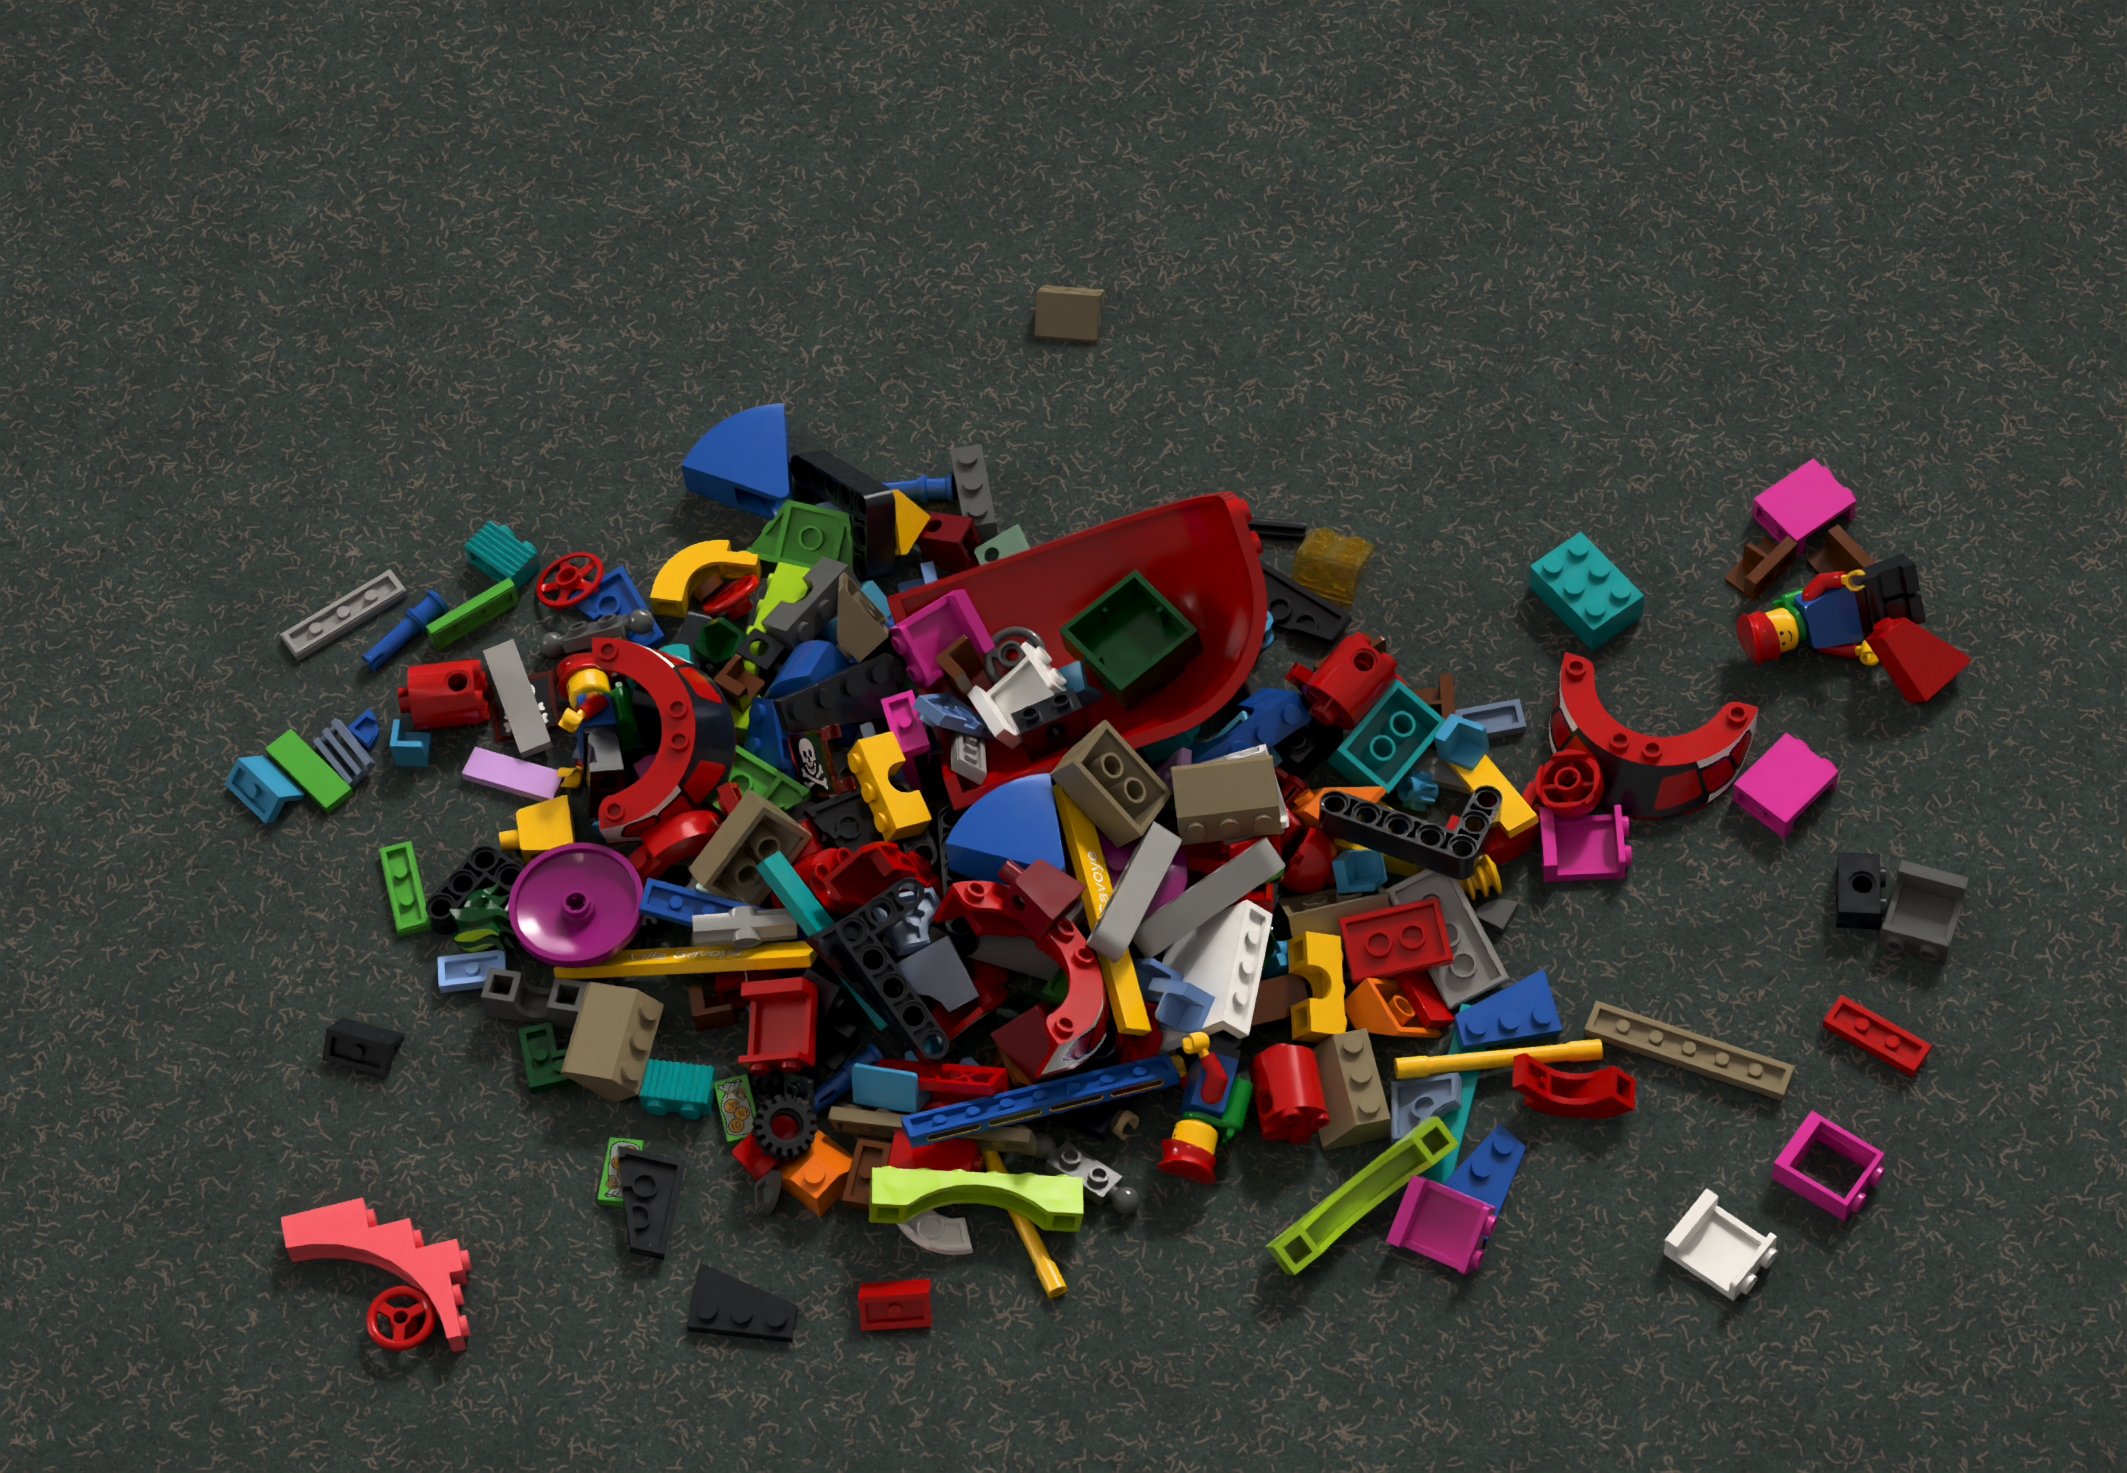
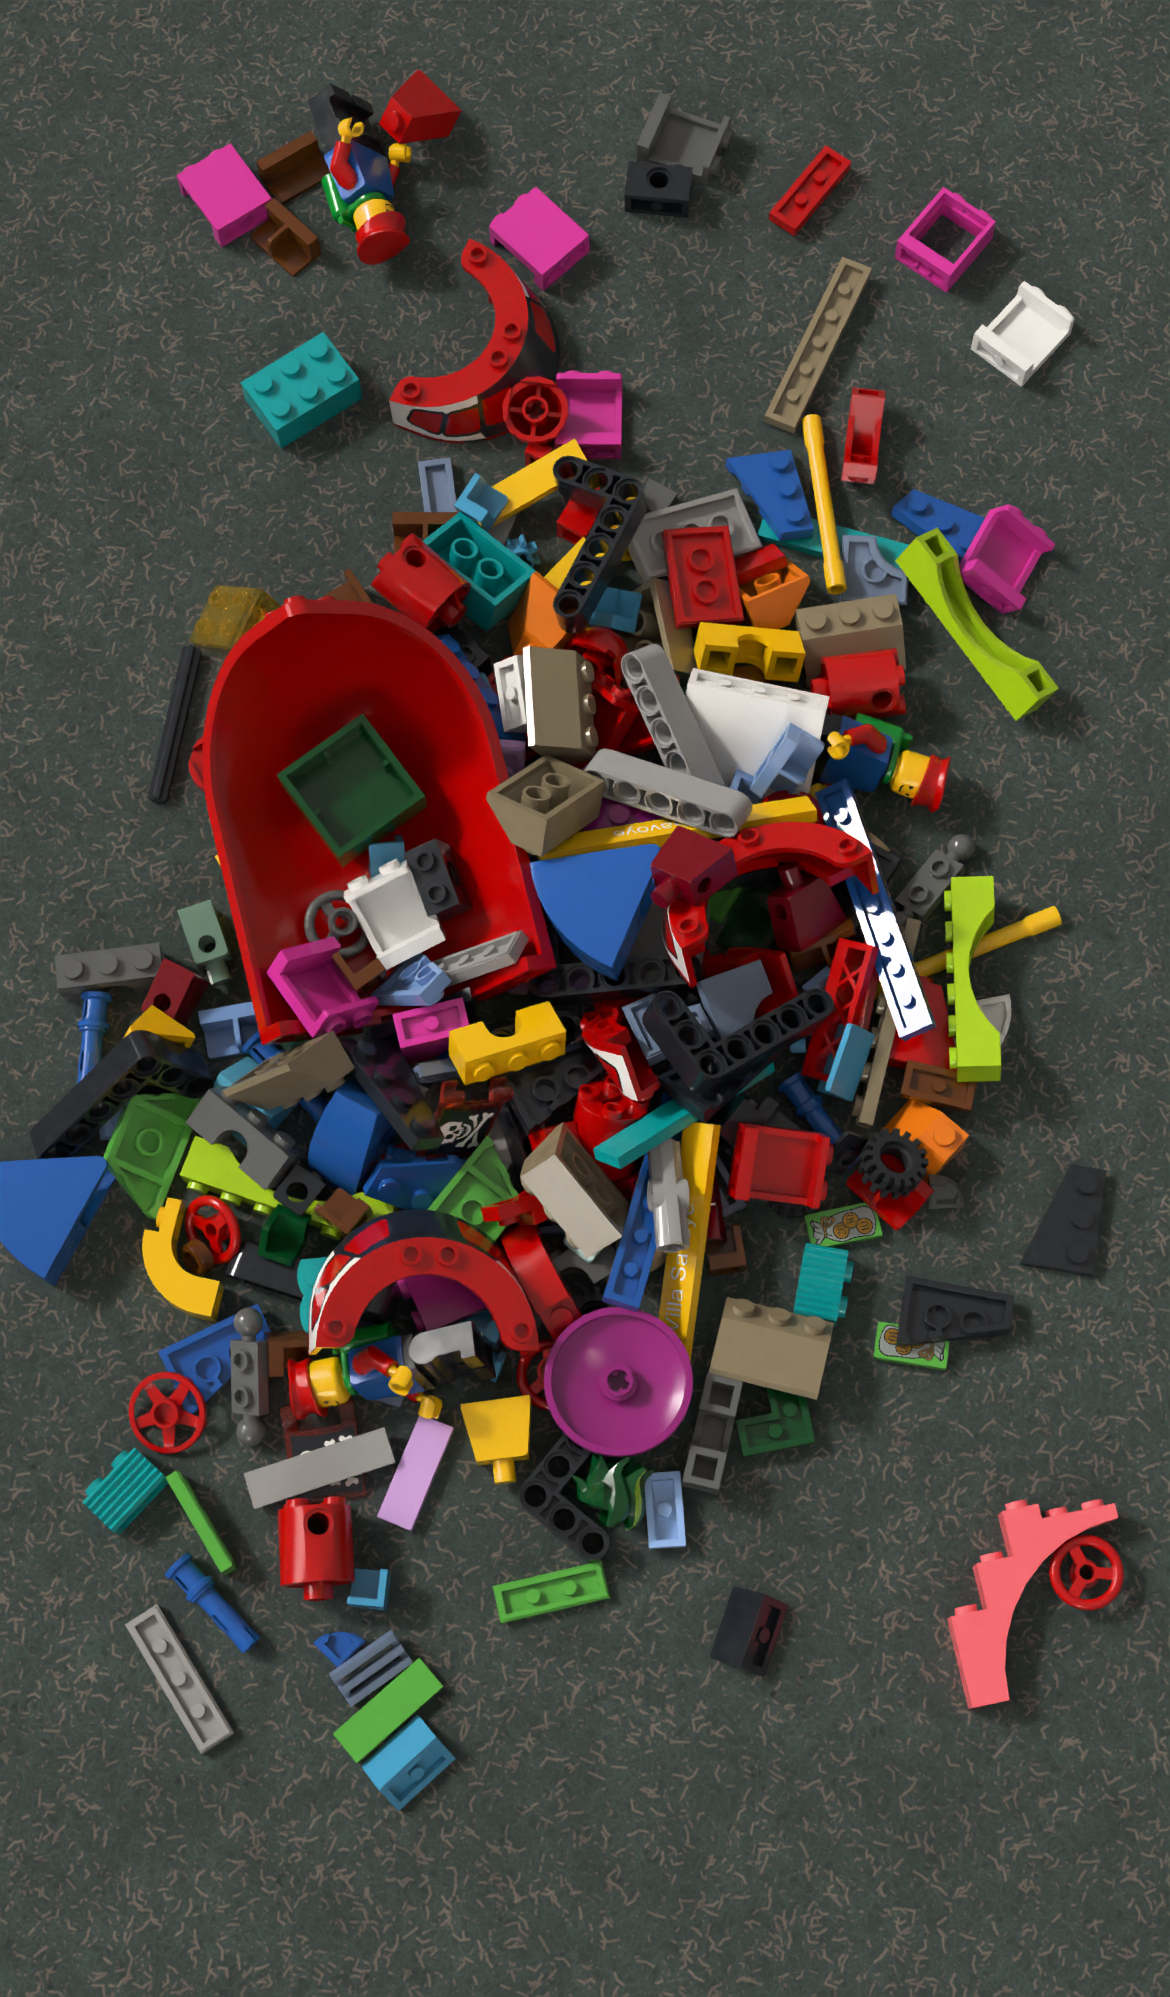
camera: 90 degrees left, 15 degrees up
(895, 1304) = (1067, 1068): red panel -> none

